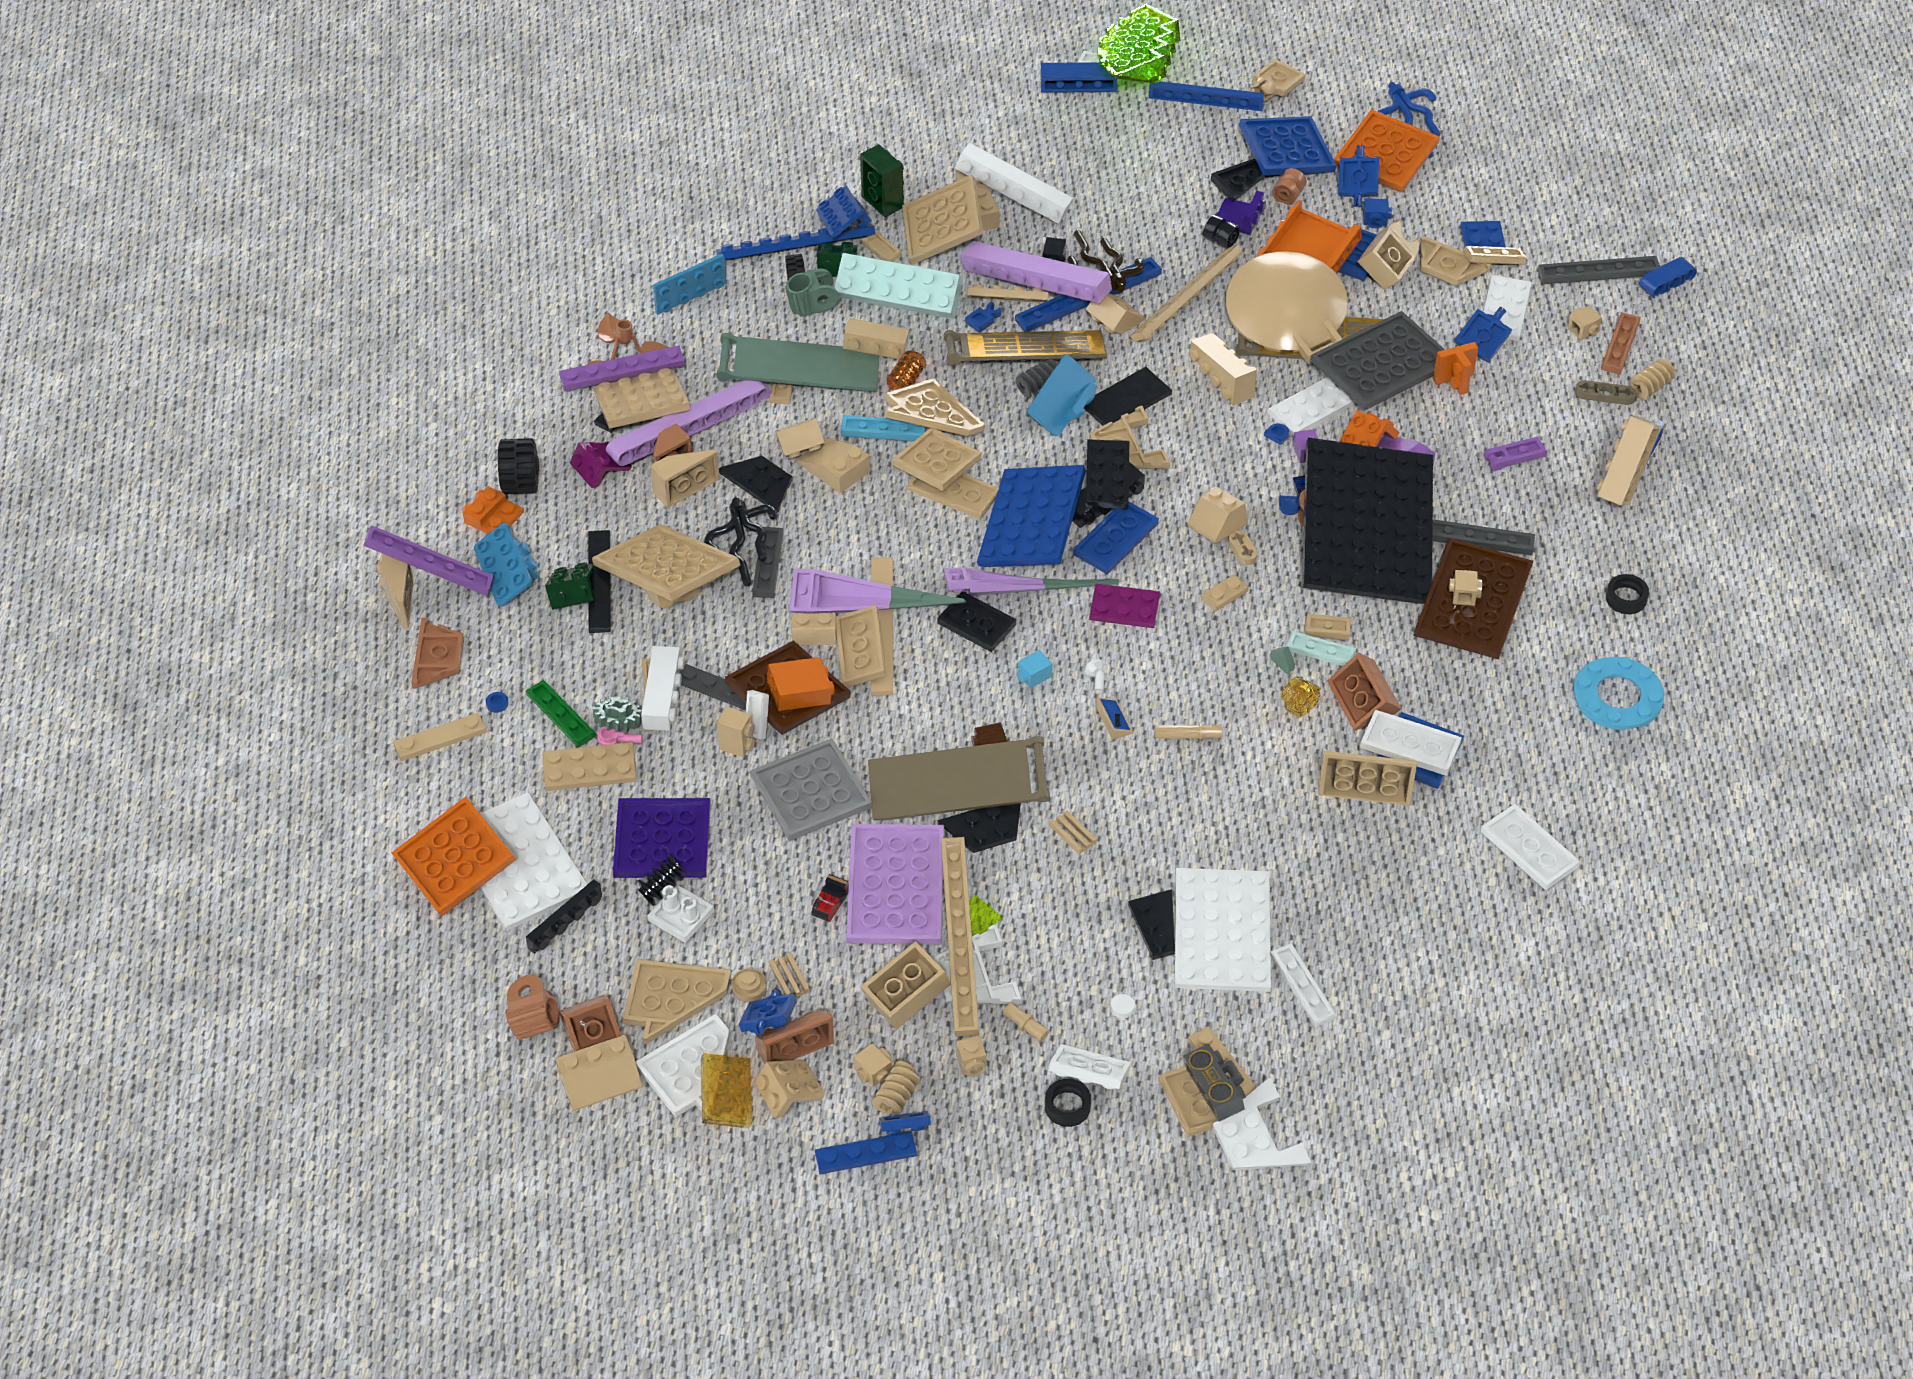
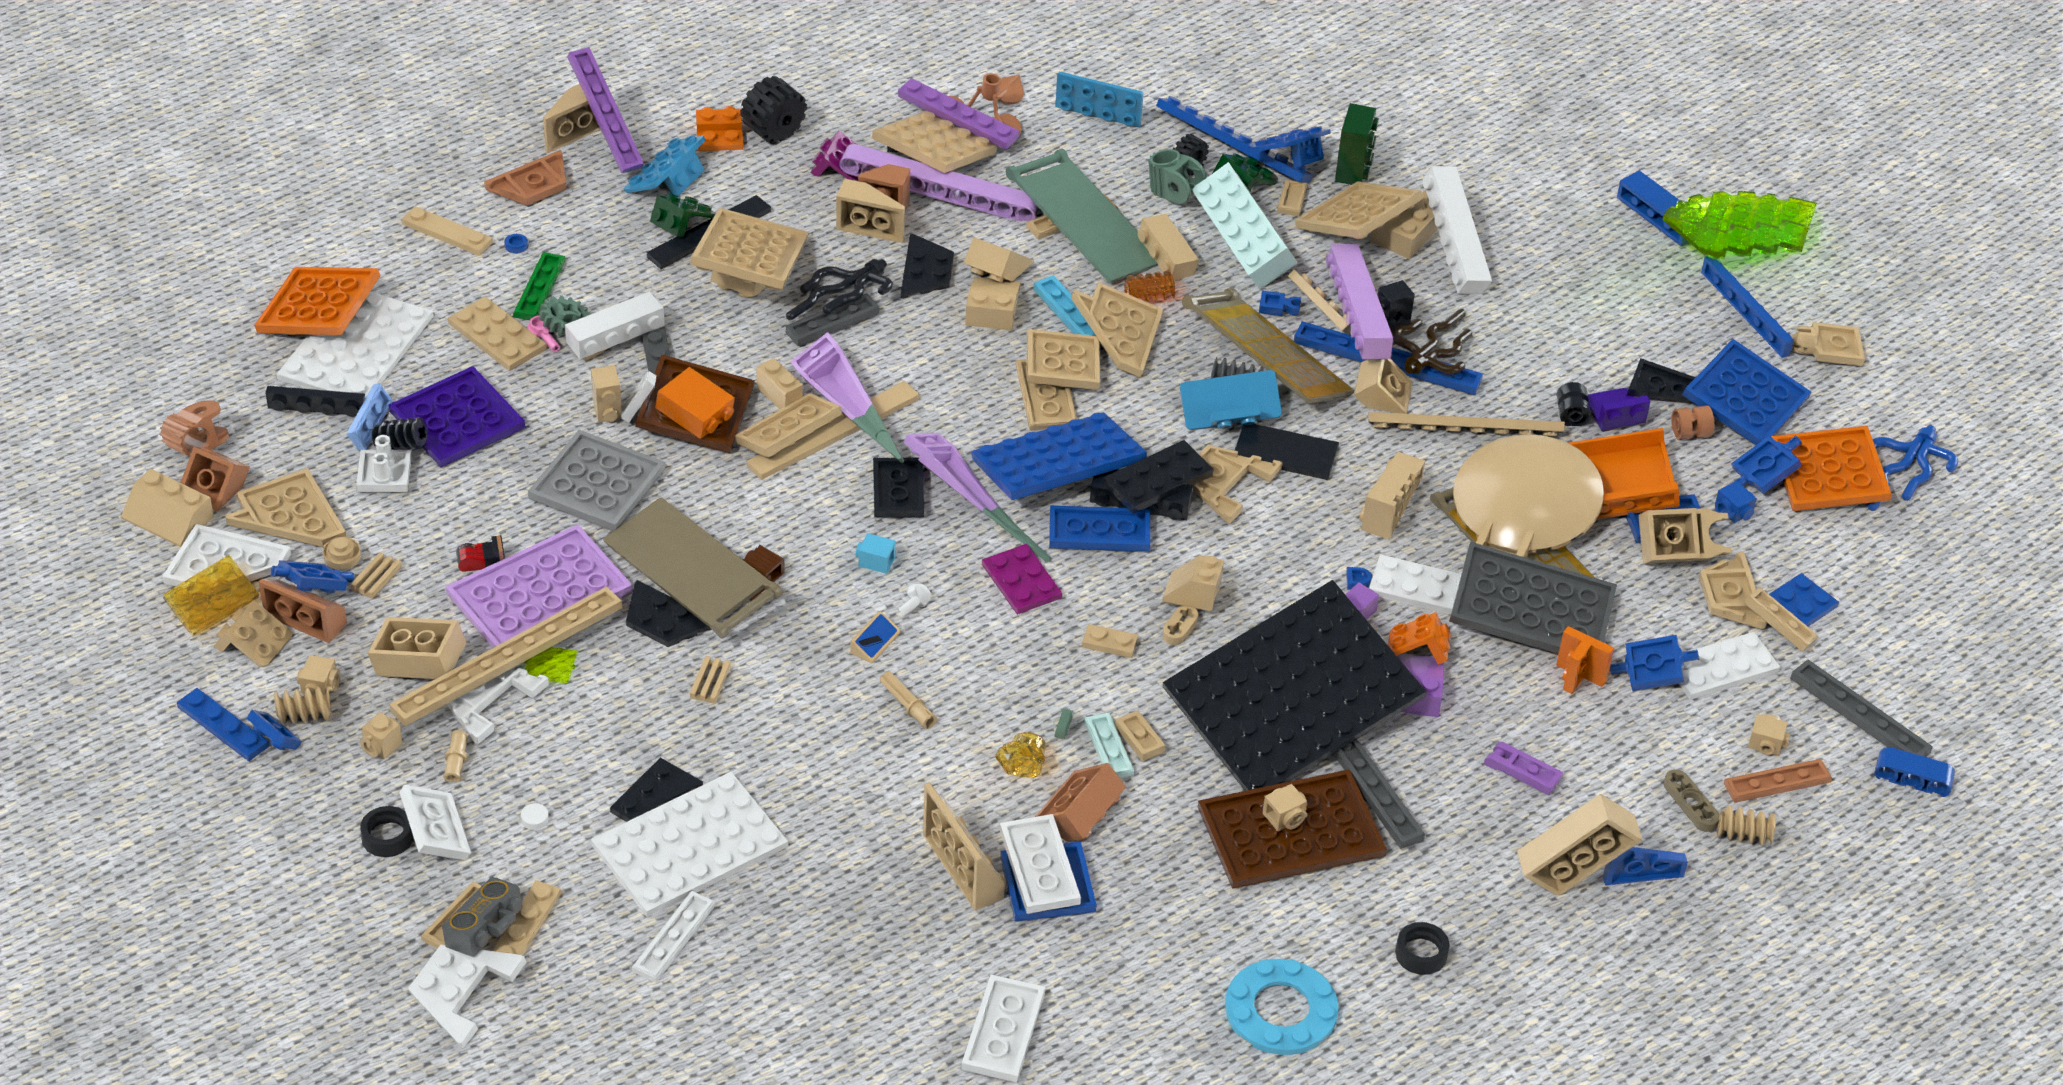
camera: 50 degrees right, 5 degrees down
(614, 891) = (369, 415): none -> light blue tile

